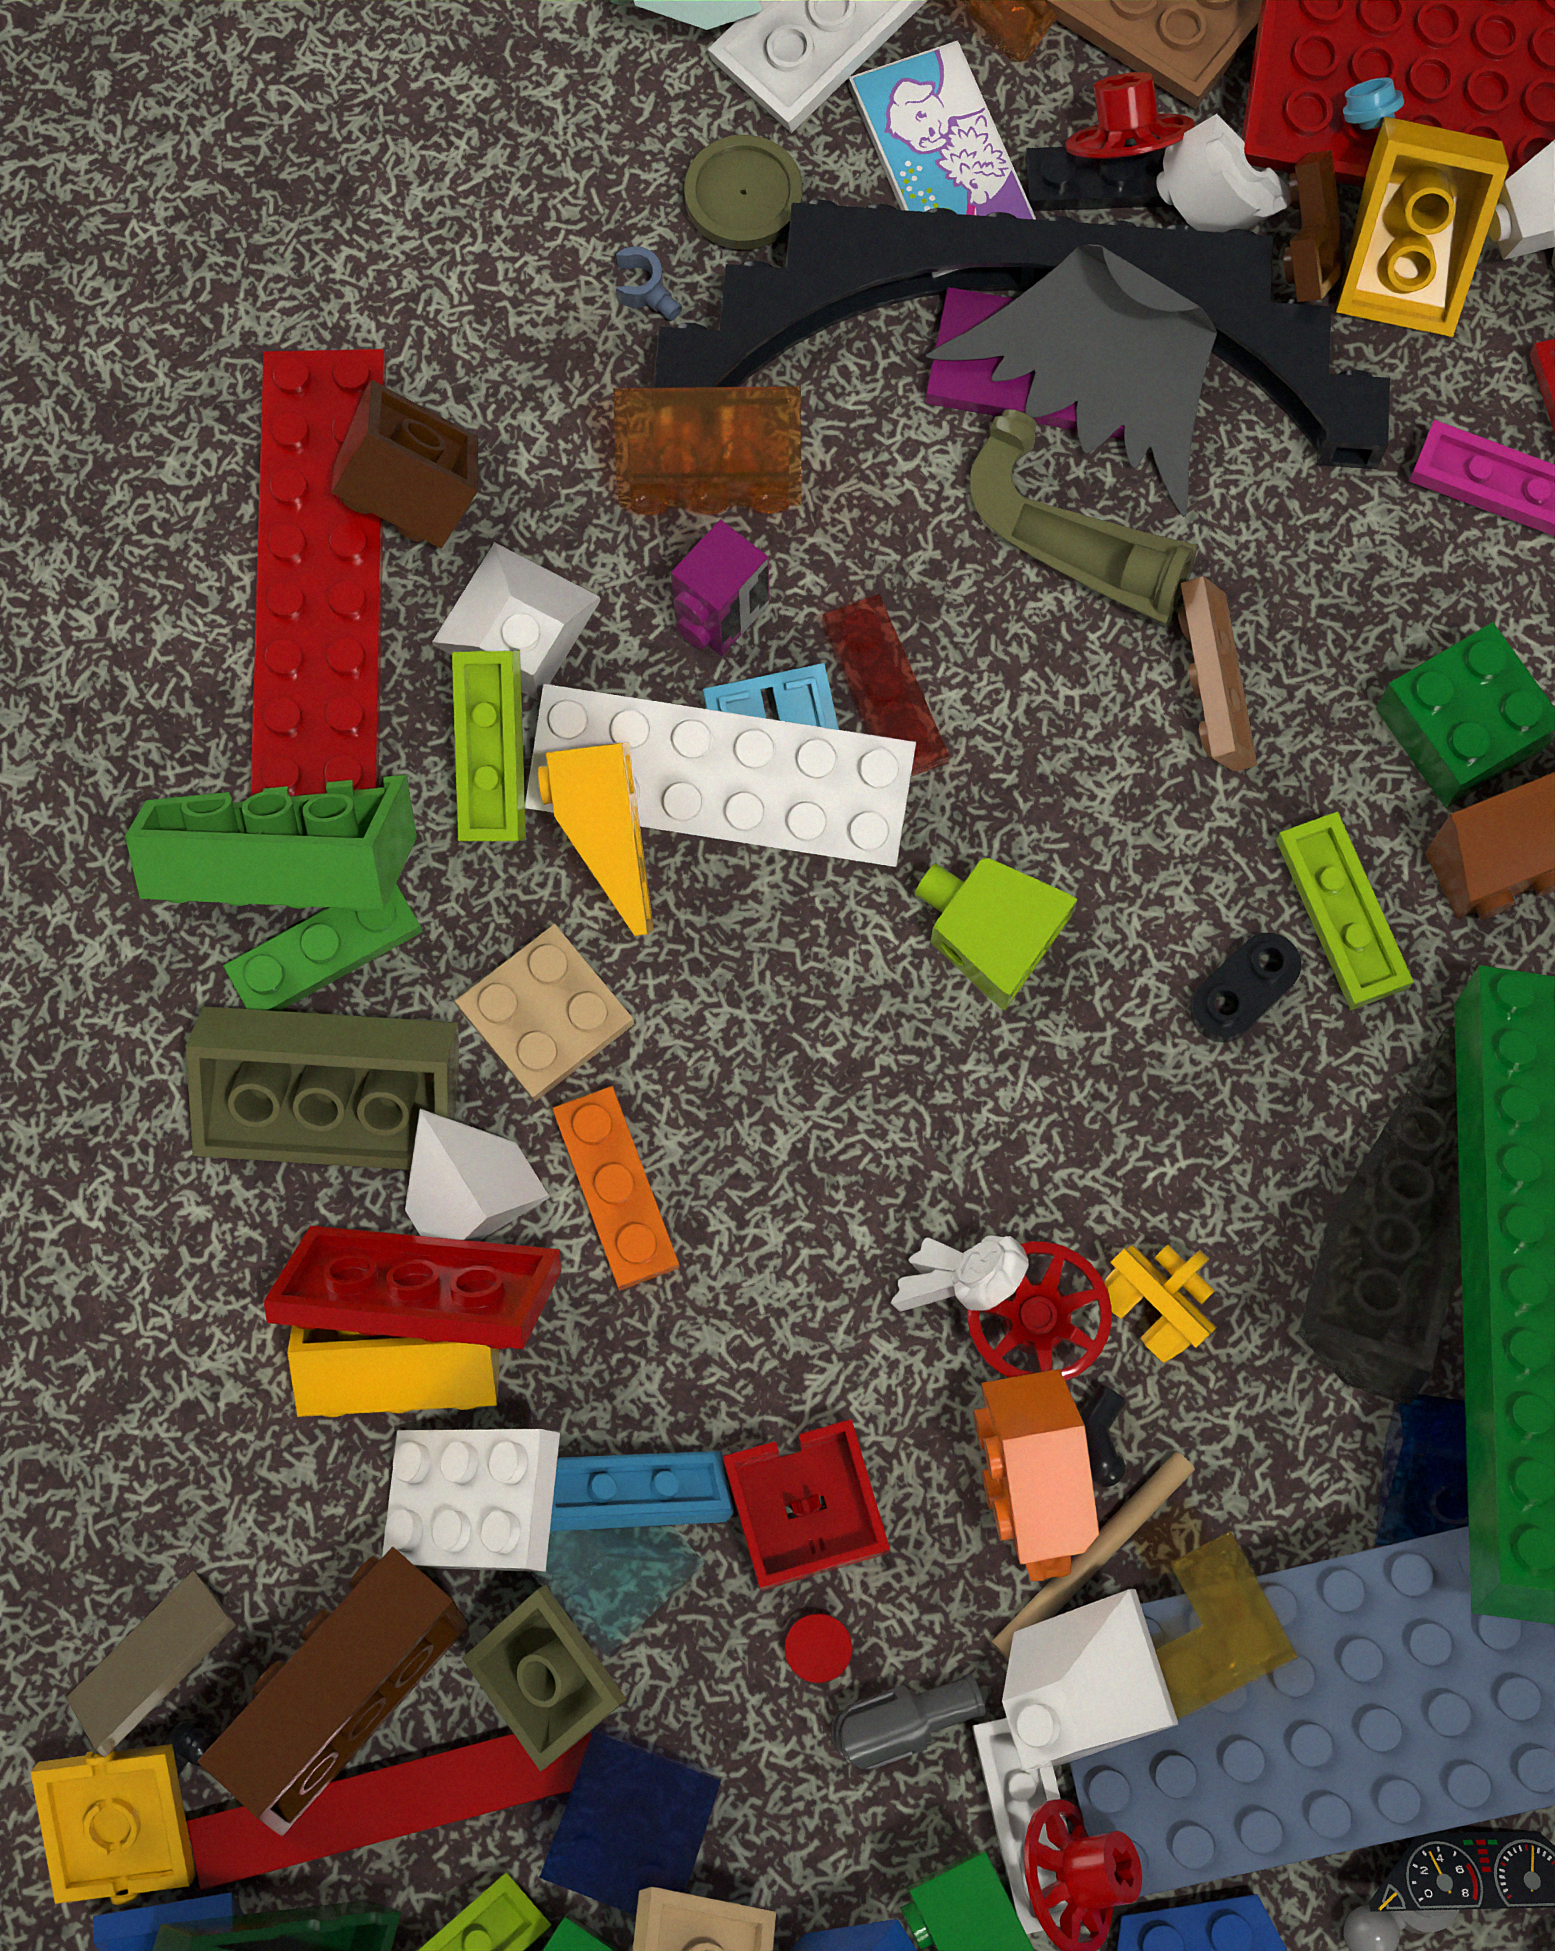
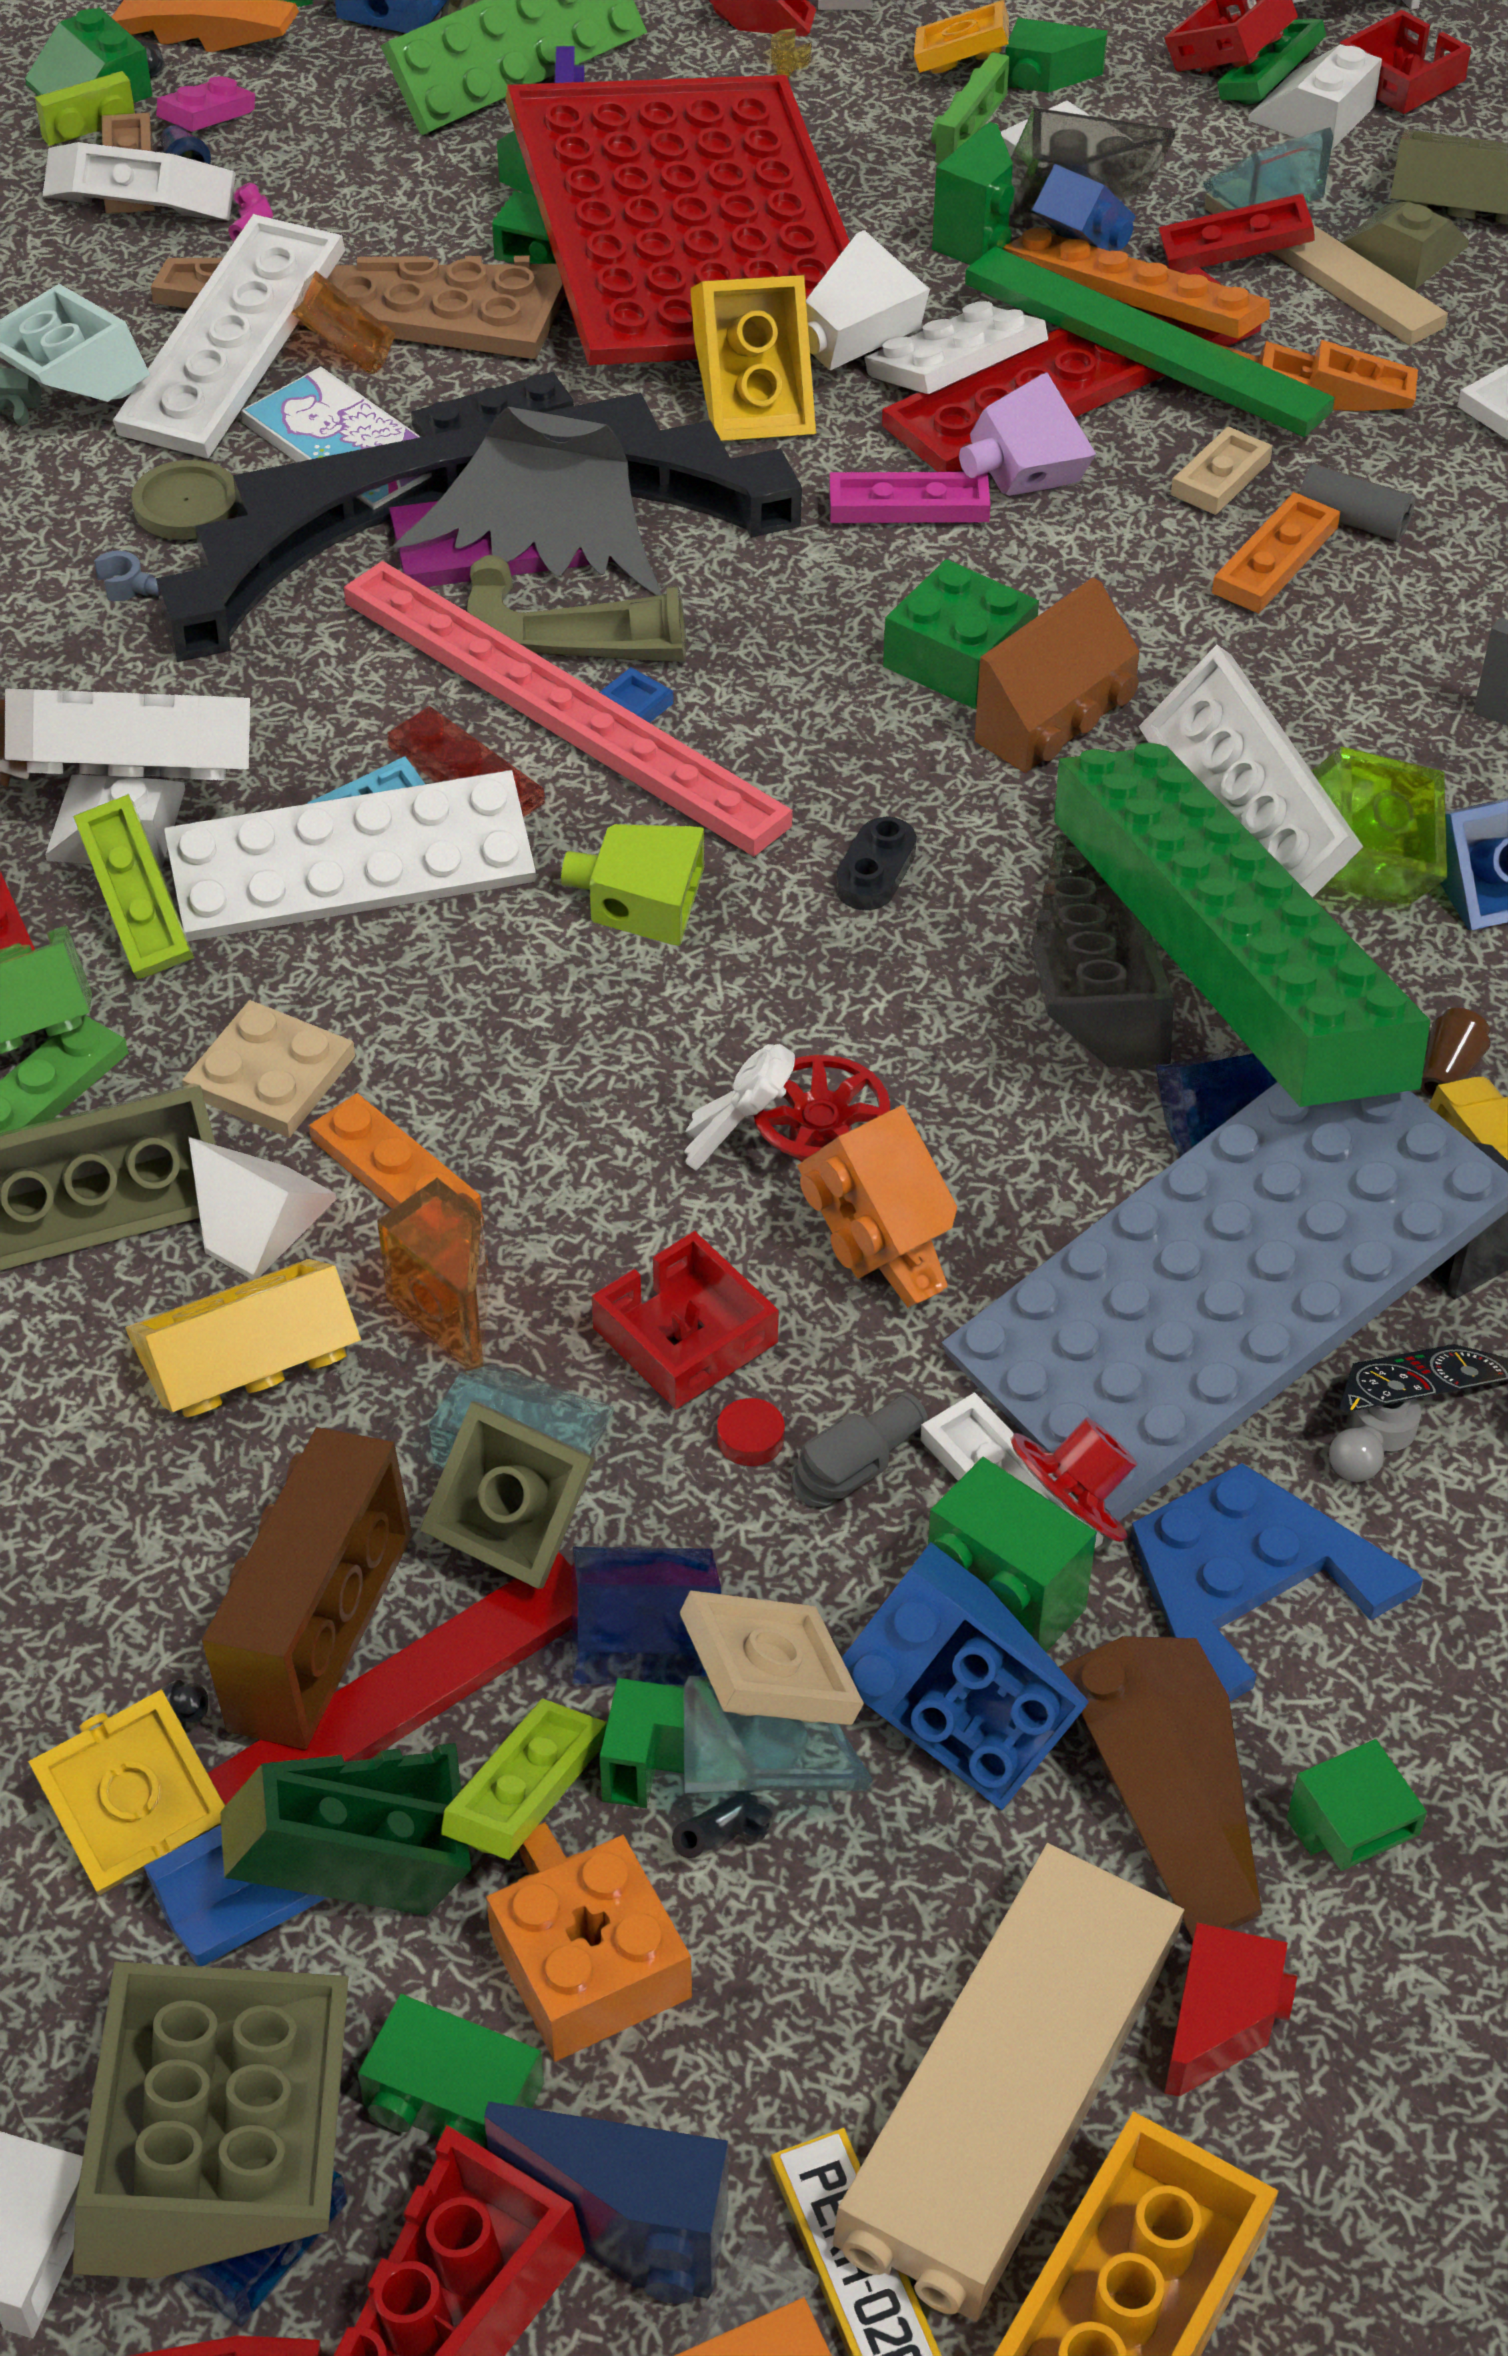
camera: 25 degrees left, 25 degrees down
(149, 1663) = (110, 1648): dark tan piece -> none
(414, 1287) = (217, 1275): red plate -> none
(472, 1498) = (384, 1384): white plate -> none
(546, 557) = (127, 733): none -> white brick
(599, 813) = (260, 900): yellow slope -> none
(599, 1366) = (438, 1269): none -> clear orange slope
(640, 1491) = (517, 1352): dark azure tile -> none
(708, 448) = (238, 636): clear orange slope -> none
(720, 589) = (292, 723): magenta brick -> none
(1018, 651) = (570, 709): none -> coral plate
(1084, 1683) = (1010, 1335): white slope -> none
(1094, 659) = (639, 694): none -> blue tile
(1110, 1539) = (960, 1282): tan bar -> none
(1127, 111) = (485, 358): red wheel -> none
(1180, 1319) = (925, 1067): yellow hips -> none
(1214, 182) = (576, 370): white cylinder -> none
(1216, 675) = (740, 672): medium nougat plate -> none
(1238, 1633) = (1112, 1246): clear yellow plate -> none
(1317, 250) = (676, 390): reddish brown plate -> none
(1344, 911) = (930, 786): lime plate -> none
(1371, 102) = (676, 288): medium azure plate -> none

